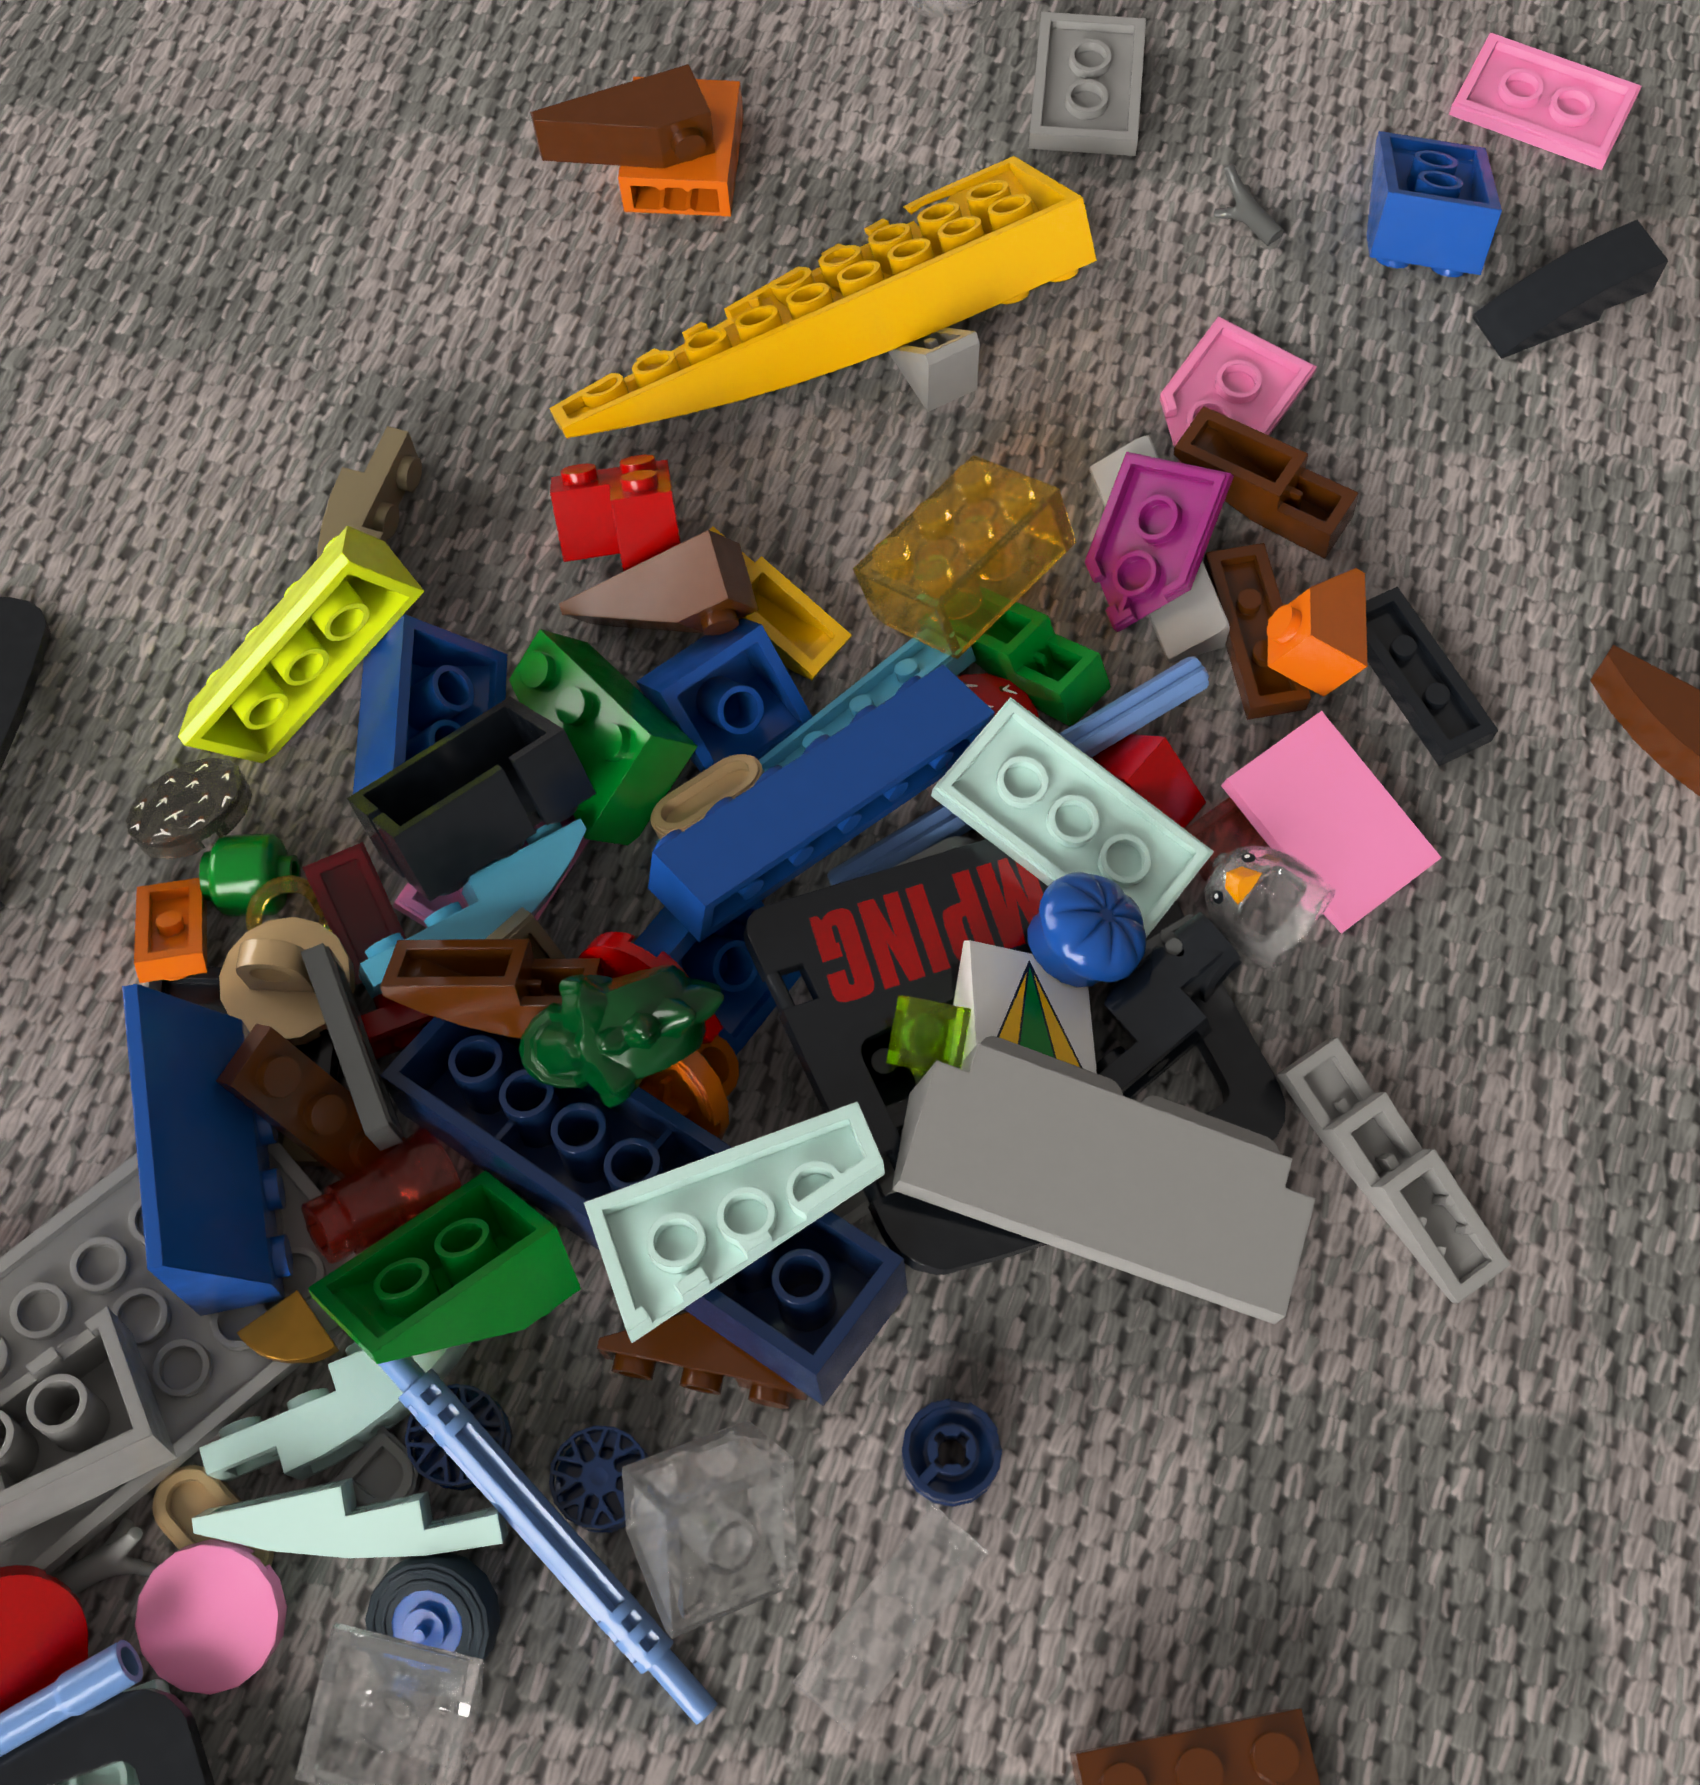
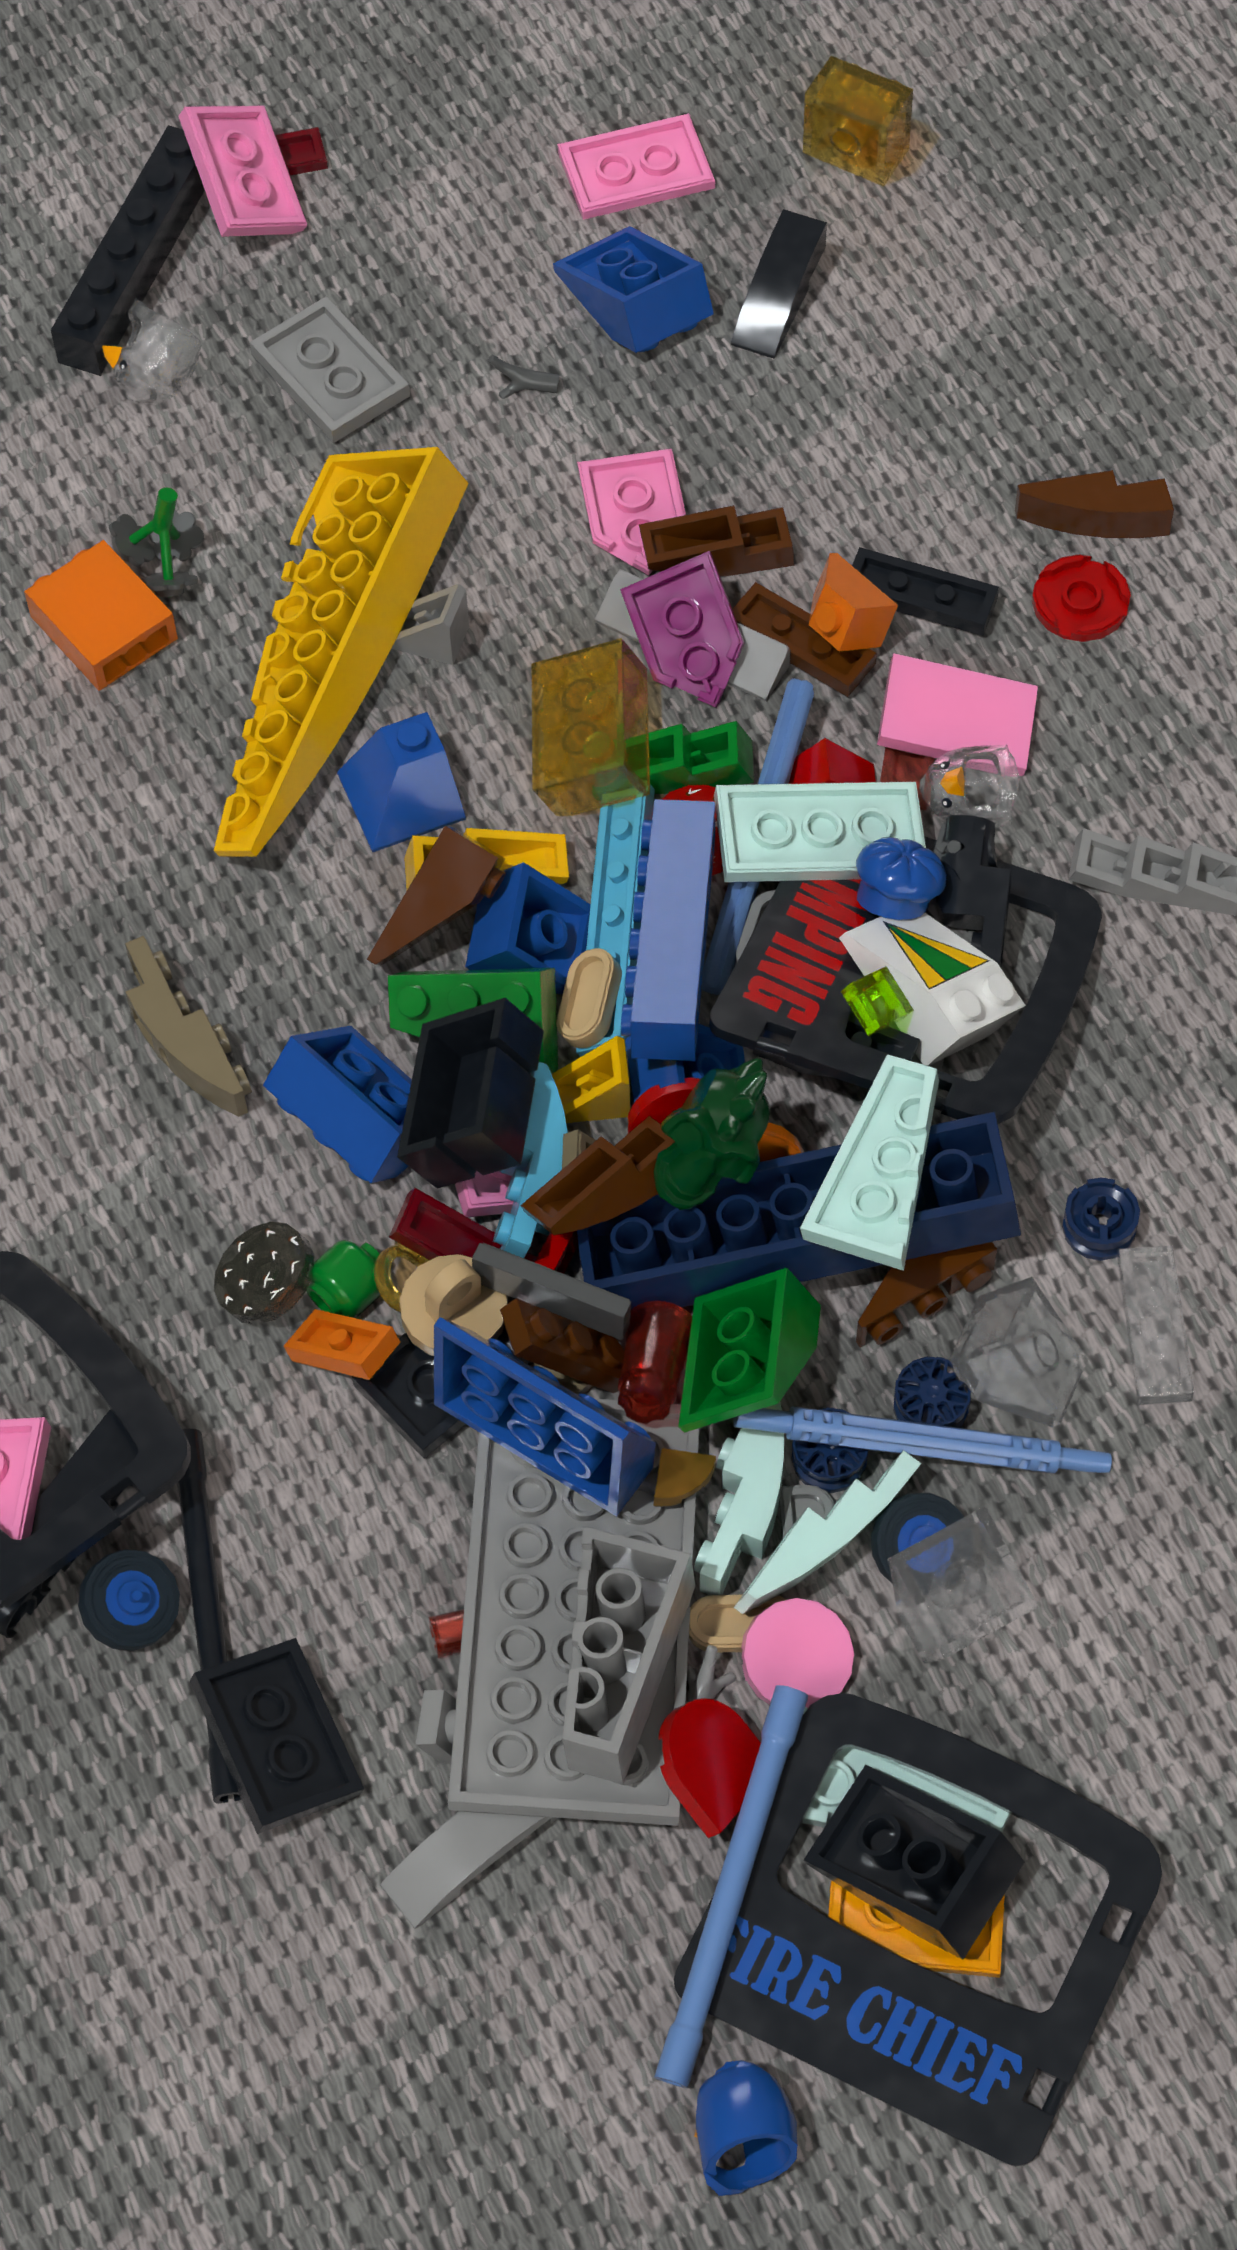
camera: 45 degrees left, 5 degrees down
(301, 649) = (243, 1108): neon yellow slope -> none
(616, 510) = (343, 870): red brick -> none
(619, 887) = (596, 1084): none -> yellow slope
(633, 124) = (79, 620): reddish brown slope -> none
(768, 479) = (401, 783): none -> blue slope
(771, 106) = (173, 537): none -> dark grey plant
(1106, 1175) = (1044, 994): light grey slope -> none
(1570, 825) = (1077, 612): none -> red tile

